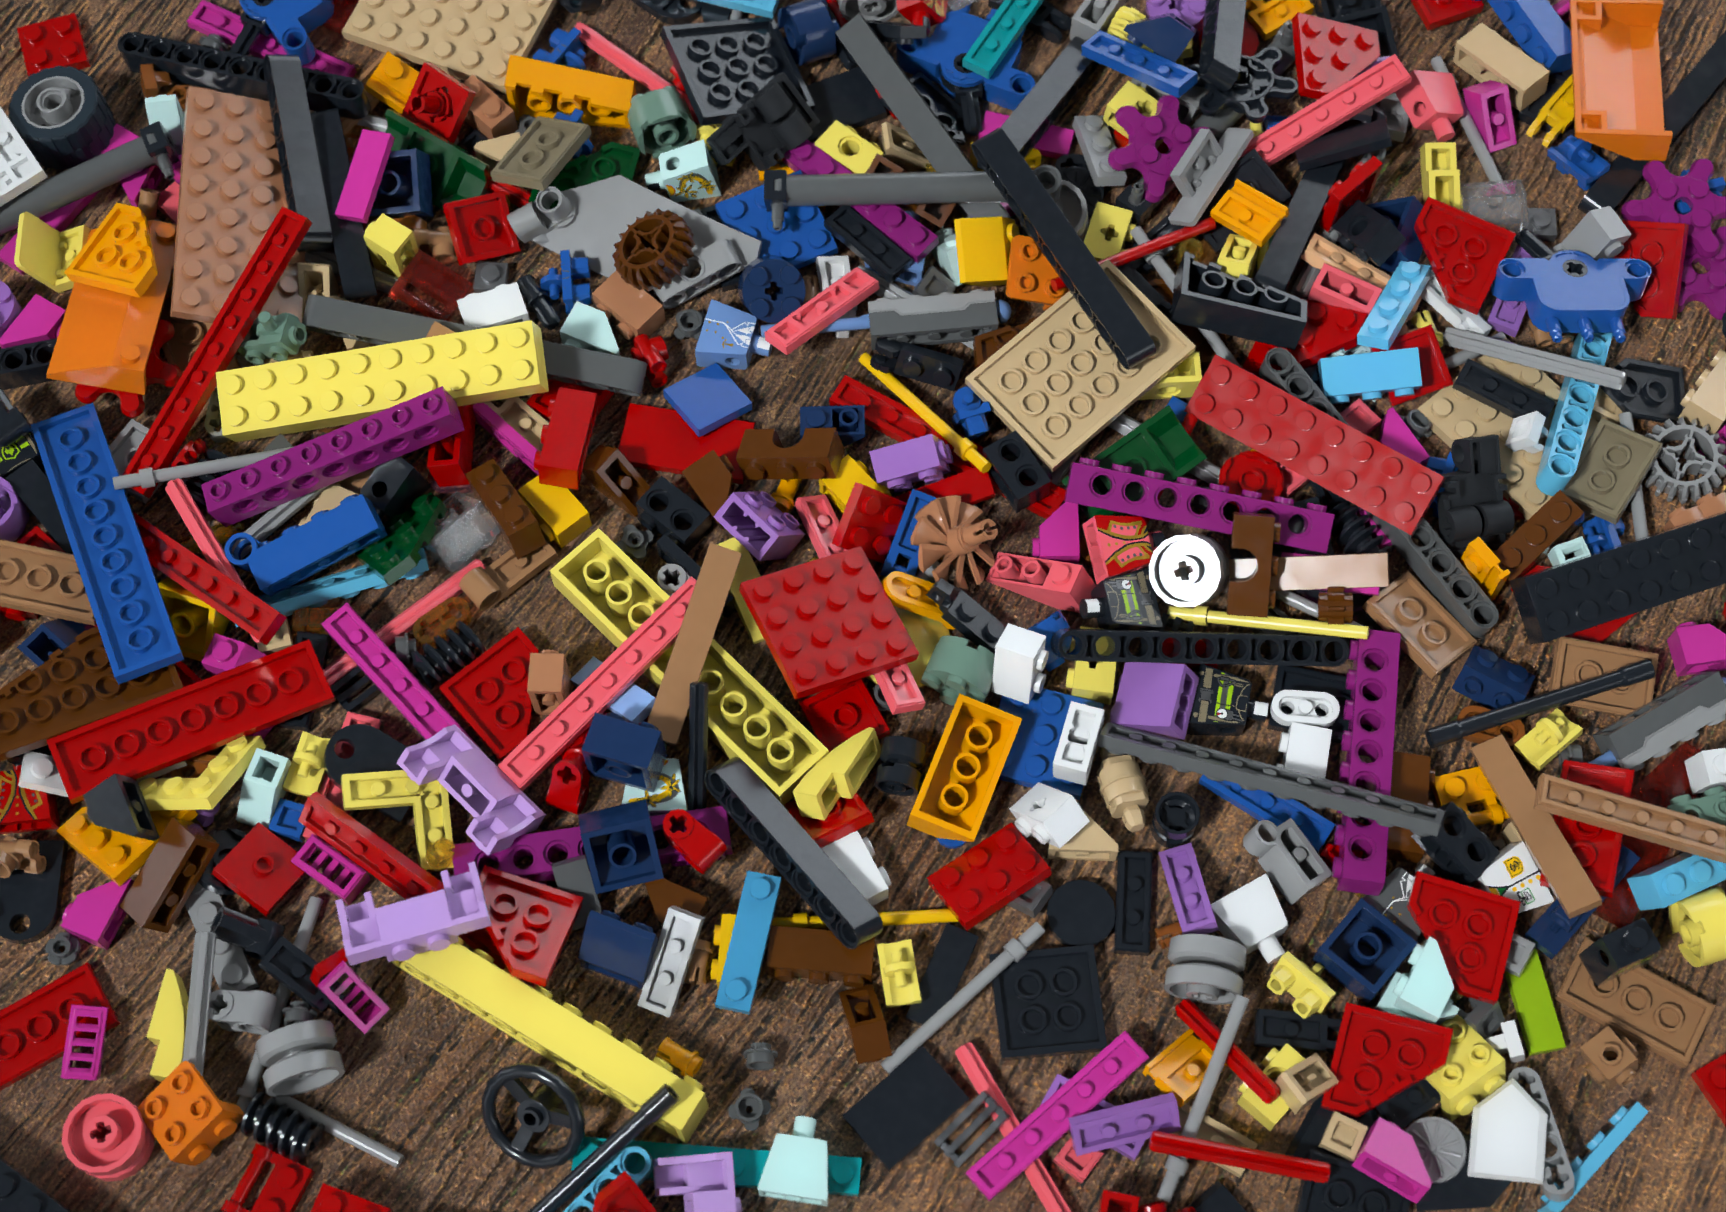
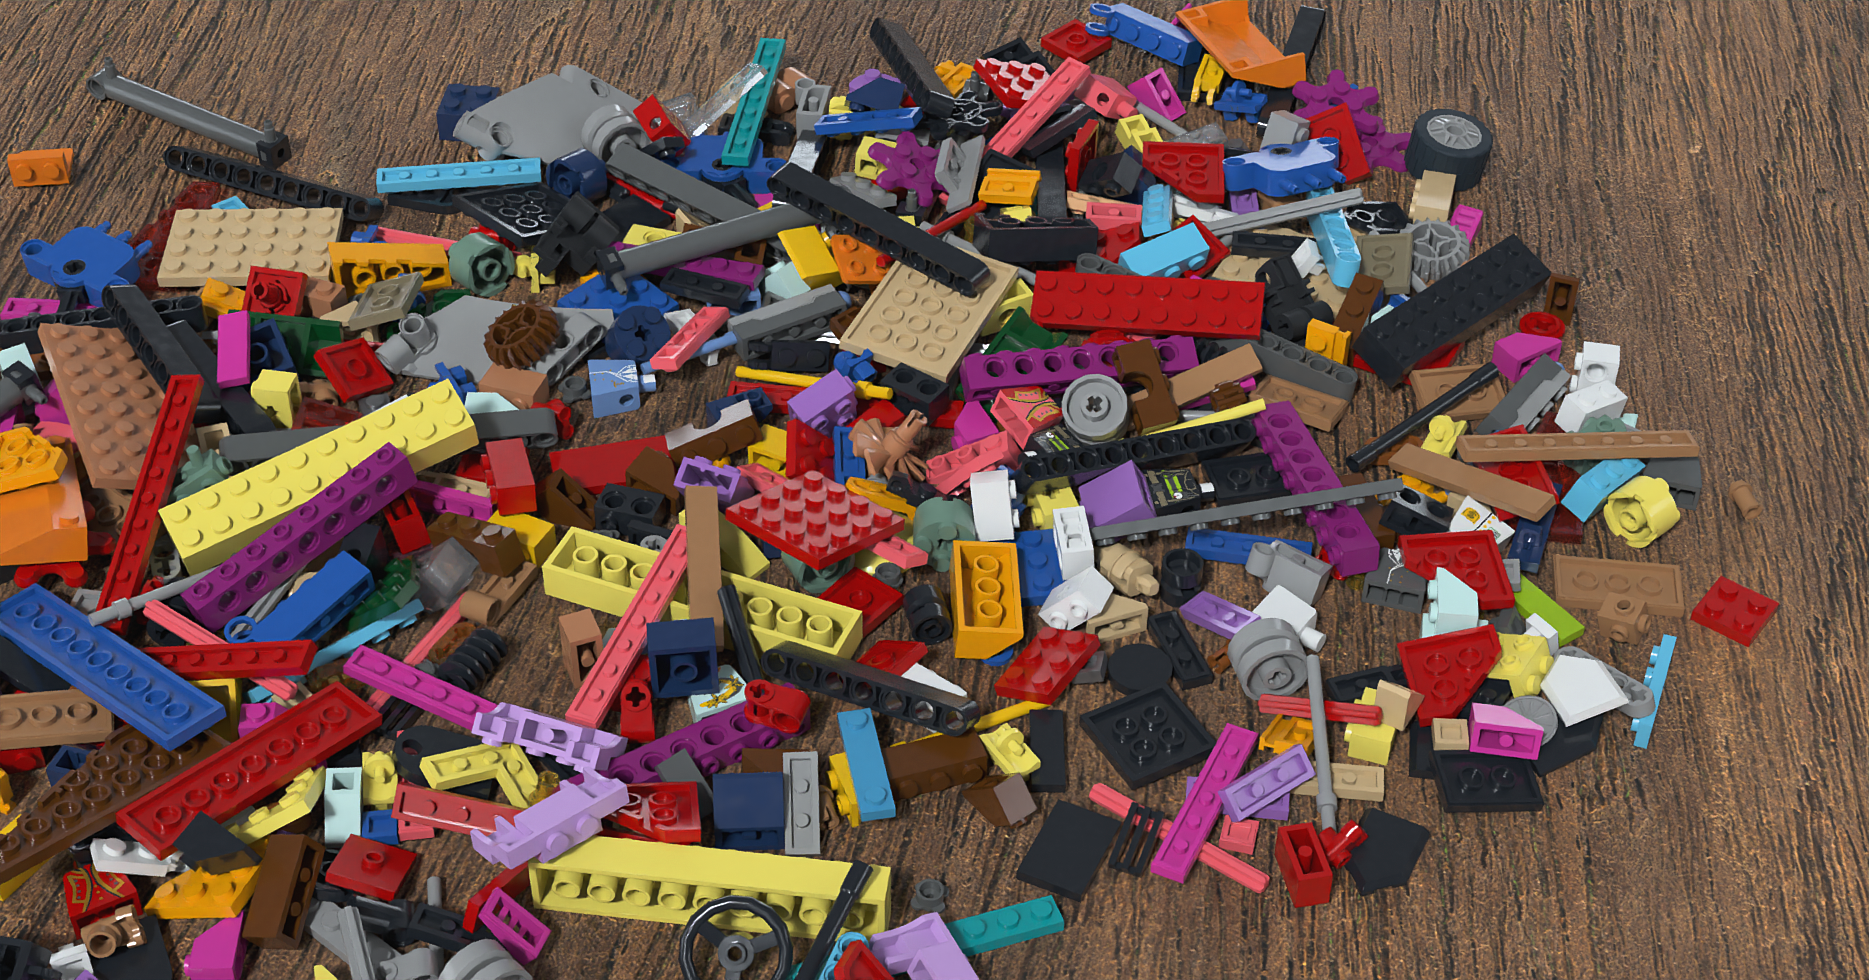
camera: 25 degrees left, 25 degrees down
(355, 885) = (449, 862): dark pink slope -> none
(494, 693) = (531, 675): red plate -> none
(620, 846) = (714, 729): dark blue slope -> none
(686, 173) = (521, 282): light aqua torso -> none
(707, 399) = (618, 429): blue tile -> none
(760, 1056) = (918, 855): dark grey plate -> none
(797, 1166) = (1003, 908): light aqua torso -> none
(837, 775) = (877, 631): light yellow slope -> none
(1013, 951) = (1099, 704): light grey bar -> none
(1017, 608) = (960, 480): none -> coral plate
(1239, 1157) = (1376, 769): red axle -> none
(1302, 983) = (1351, 650): light yellow hips -> none
(1303, 708) = (1241, 475): white plate -> none
(1305, 749) = (1277, 526): white brick -> none
(1364, 951) = (1387, 610): dark blue brick -> none
(1491, 57) = (1131, 63): tan brick -> none
(1492, 679) = (1370, 421): dark blue bracket -> none
(1626, 950) = (1588, 542): black torso -> none

